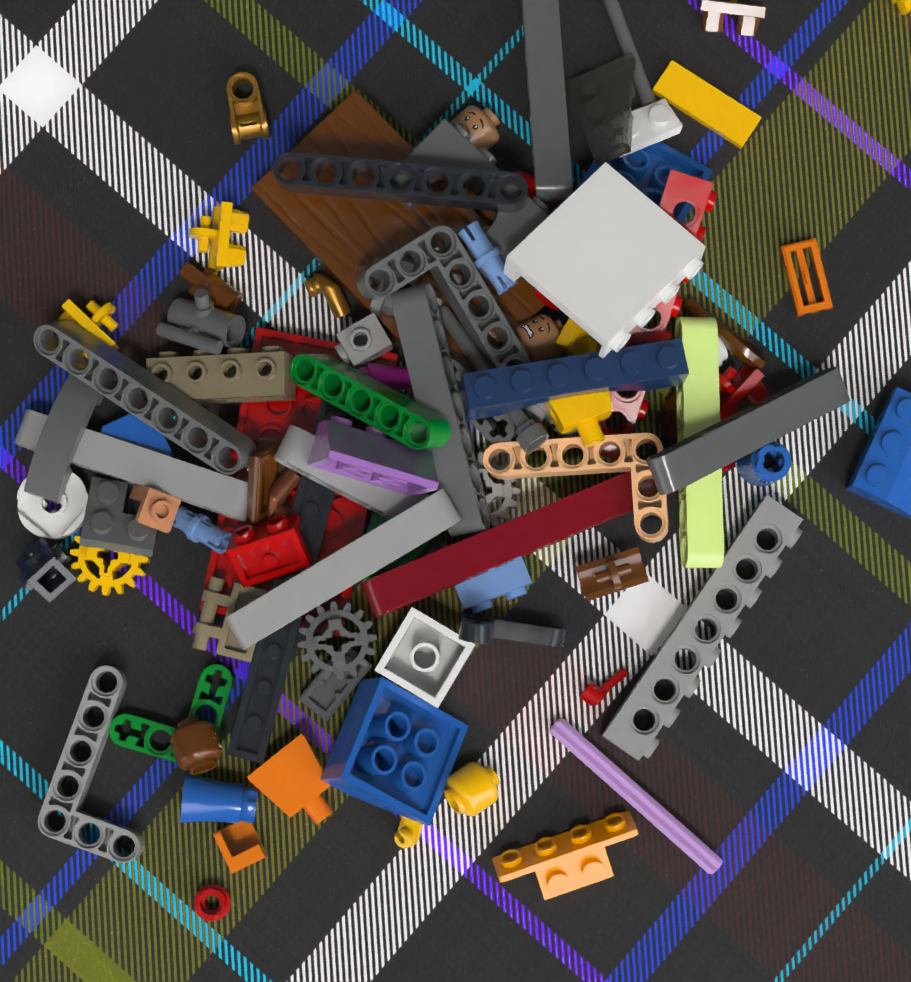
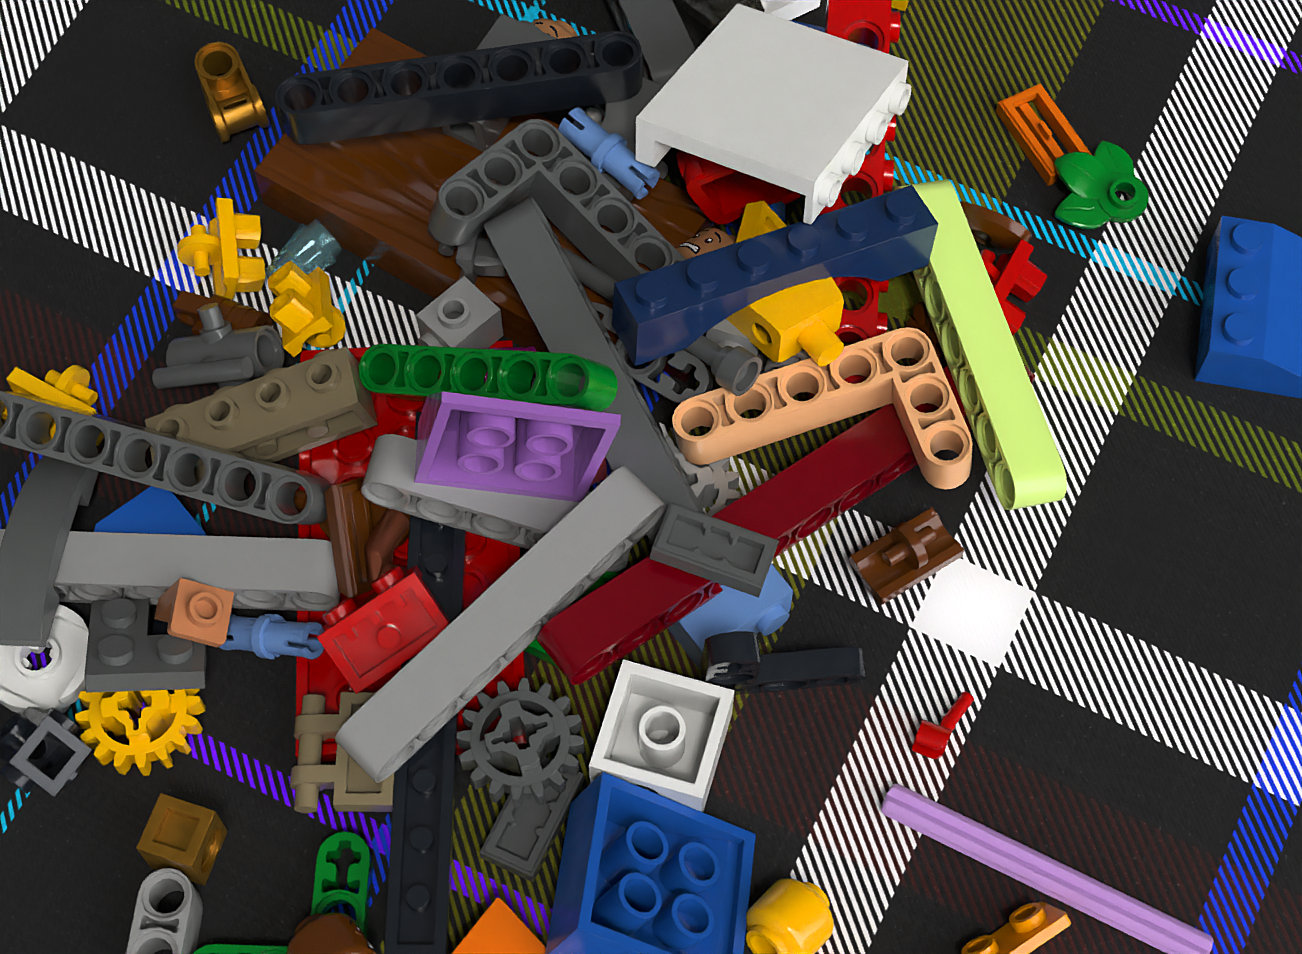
camera: 15 degrees left, 20 degrees down
(121, 648) = (182, 838): none -> pearl gold brick
(266, 300) = (304, 308): none -> yellow hips
(273, 252) = (308, 249): none -> clear light blue cone
(331, 292) = (393, 286): pearl gold arm -> none
(484, 557) = (714, 549): none -> dark grey plate
(747, 430) = (1036, 302): dark grey beam -> none
(752, 469) = (1074, 356): blue plant -> none
(767, 516) = (995, 779): light grey brick -> none
(824, 329) = (1094, 185): none -> green plate

